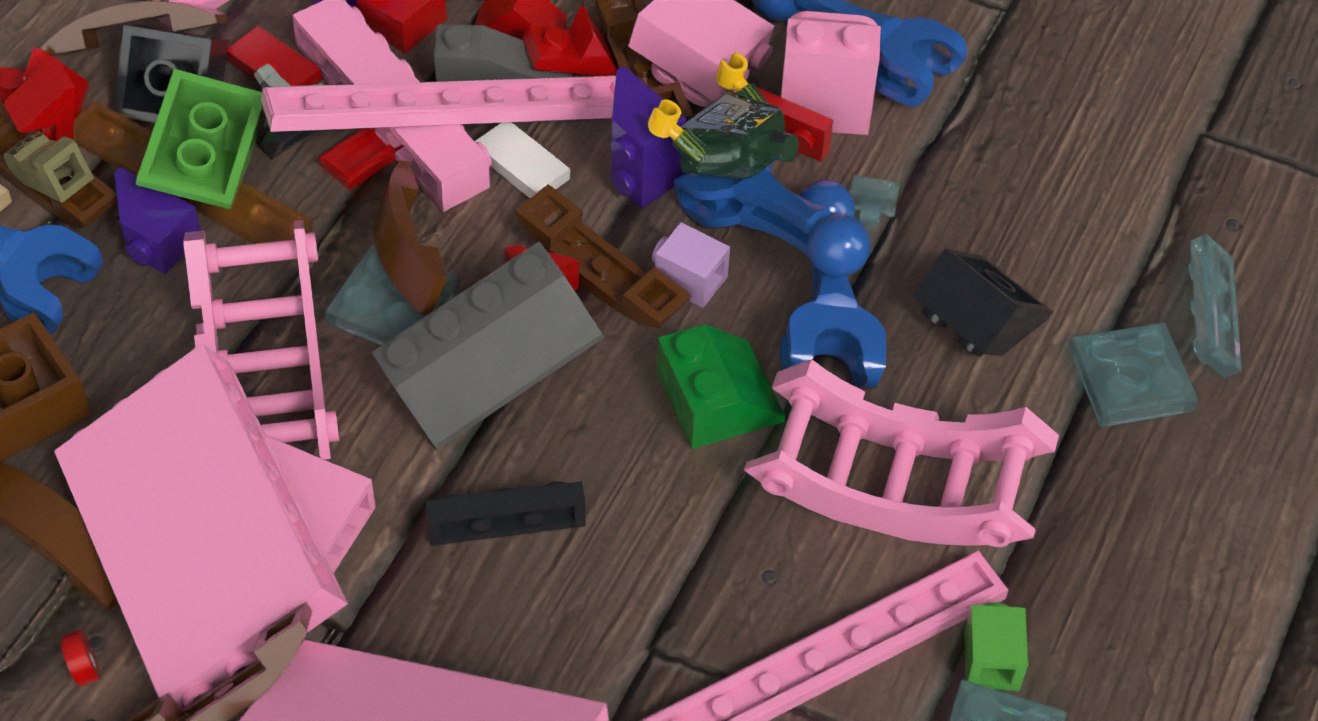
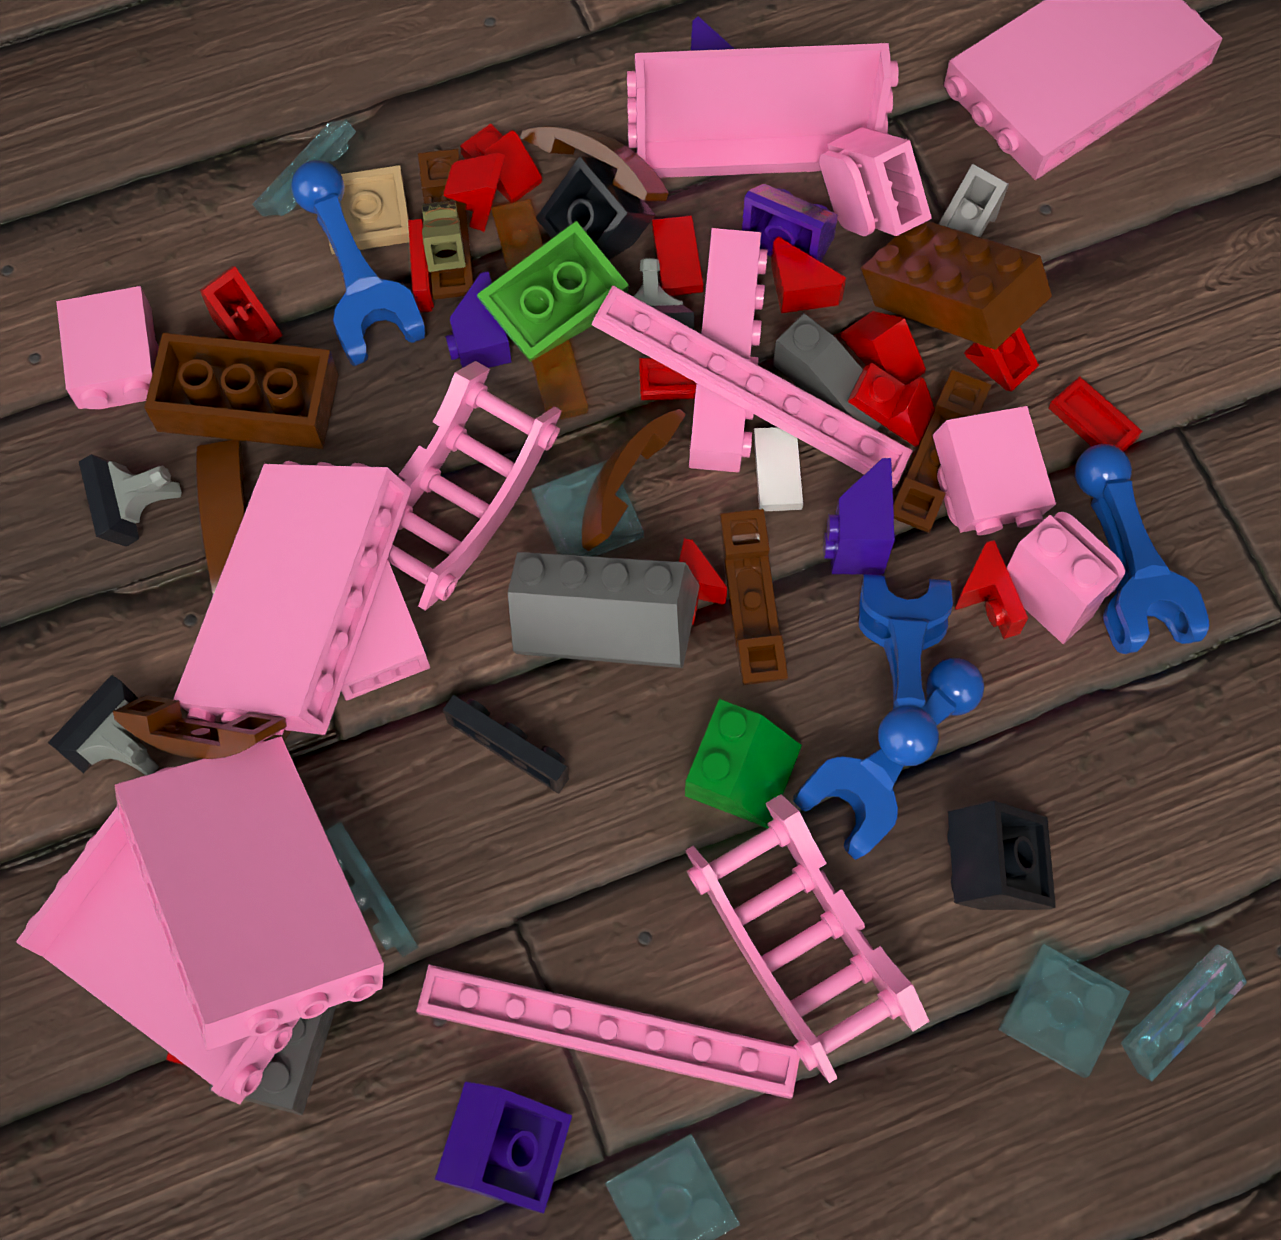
camera: 45 degrees right, 15 degrees up
(37, 203) = (419, 269): none -> red tile
(80, 658) = (163, 627): red tile -> none
(693, 262) = (813, 652): lavender brick -> none
(733, 134) = (927, 576): torso -> none
(874, 199) = (1000, 707): clear light blue tile -> none
(996, 646) = (737, 1131): bright green brick -> none

